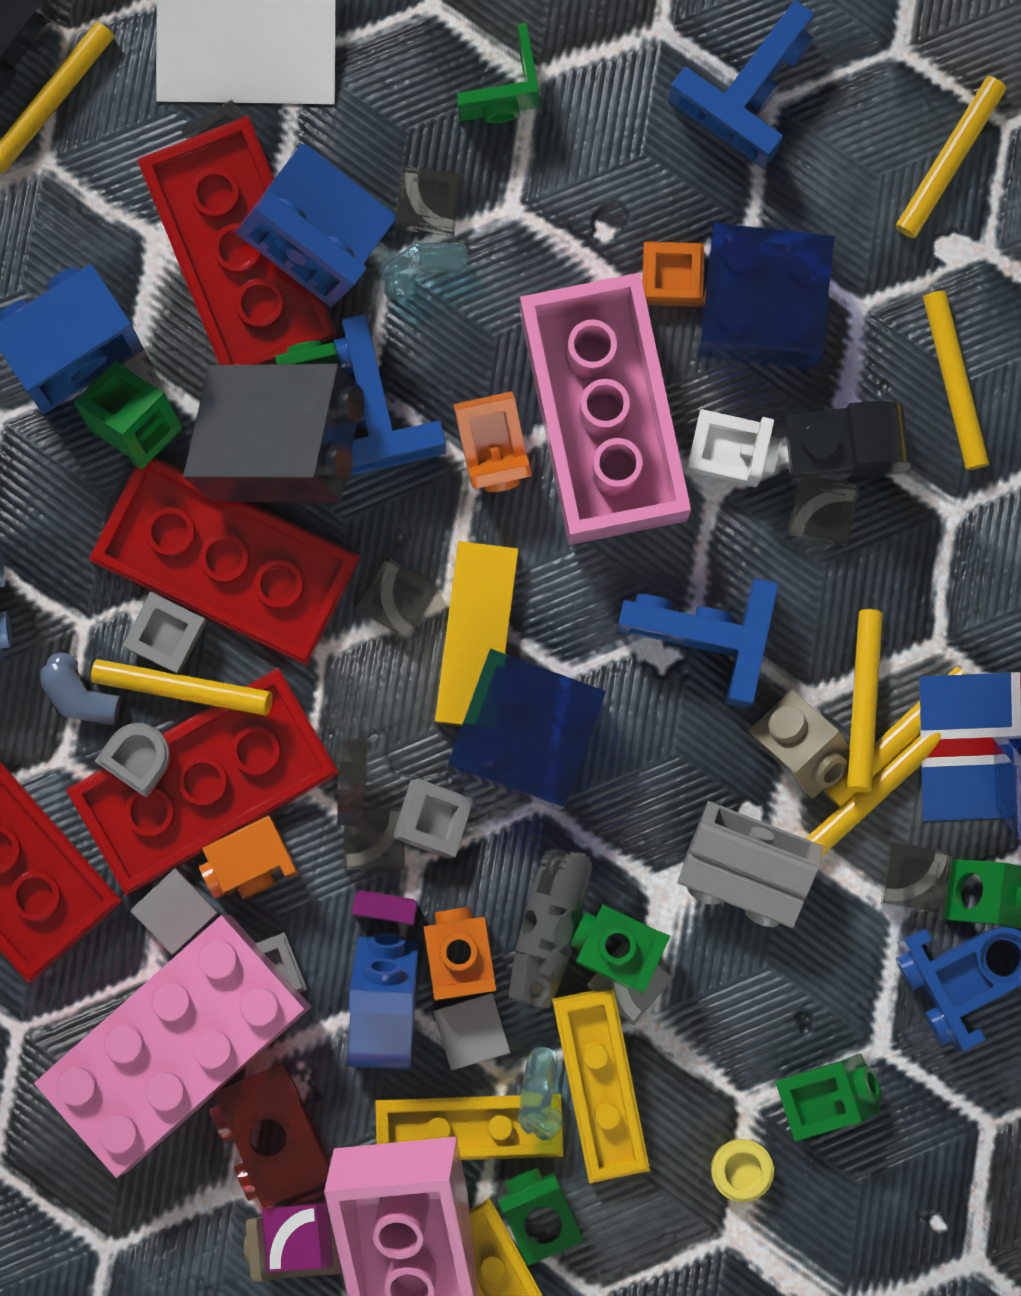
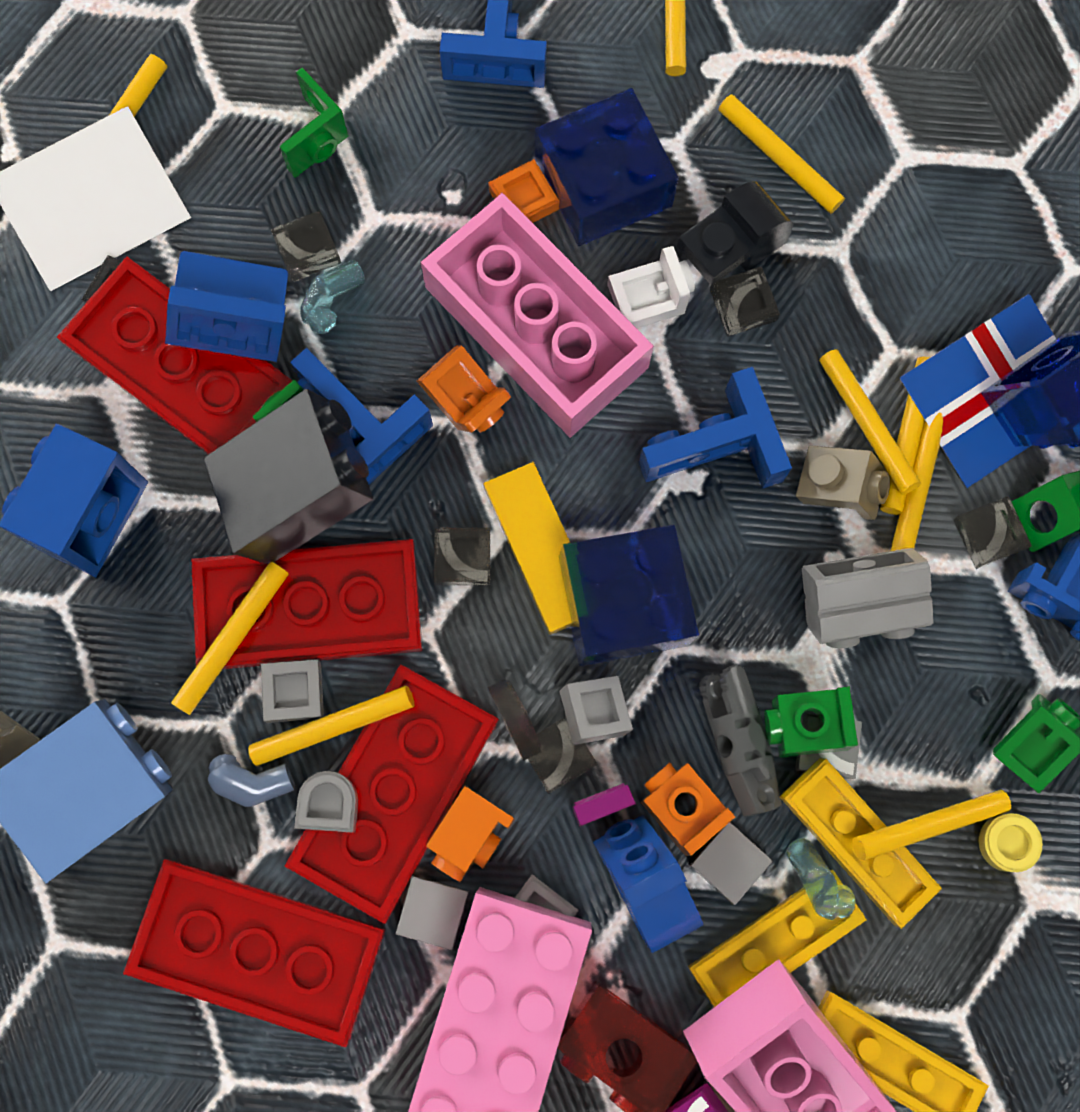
camera: 30 degrees left, 5 degrees down
(129, 414) = (162, 533): green brick -> none
(136, 550) = (229, 638): none -> yellow bar
(533, 1191) = (858, 970): green bracket -> none
(675, 1107) = (931, 825): none -> yellow bar

